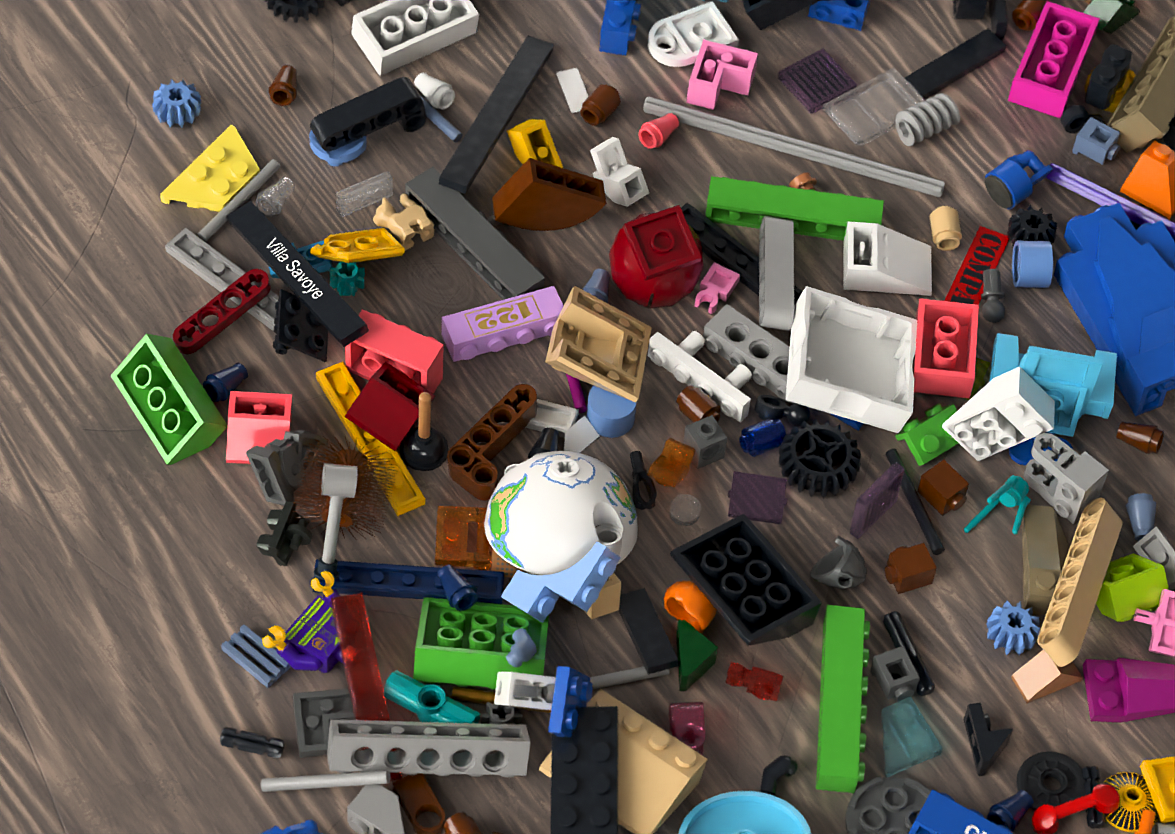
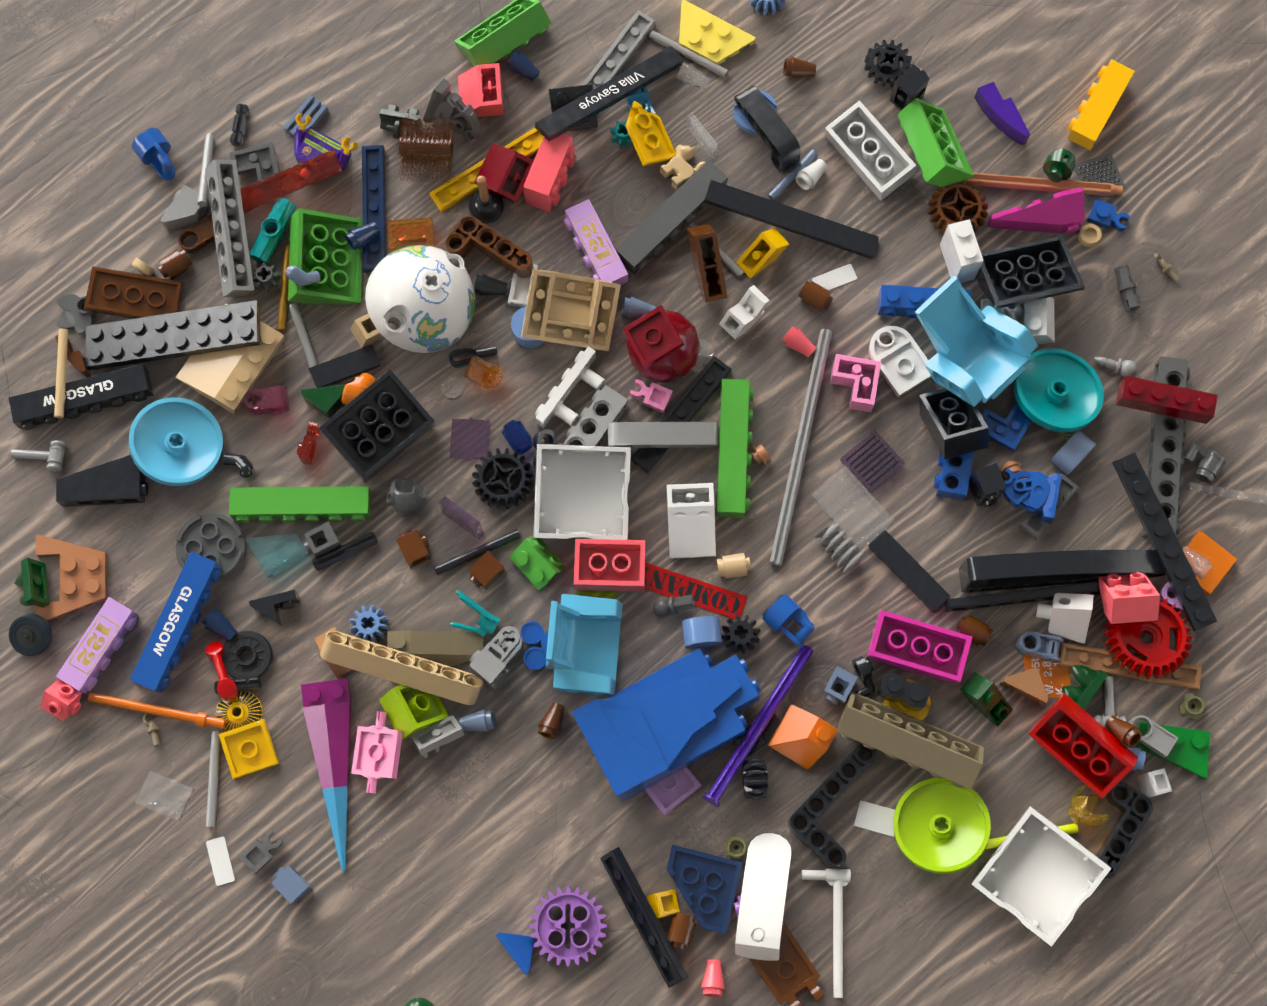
camera: 90 degrees right, 20 degrees up
(218, 308) = (579, 56): dark red beam -> none
(337, 483) = (399, 133): light grey piece -> none
(524, 690) = (265, 282): white torso -> none
(570, 691) = (254, 301): blue plate -> none
(576, 584) = (351, 303): light blue arch -> none
(579, 436) = (503, 307): white sticker -> none
(697, 404) = (538, 389): reddish brown brick -> none
(707, 441) = (506, 394): dark grey brick -> none
(1002, 415) = (534, 604): white slope -> none

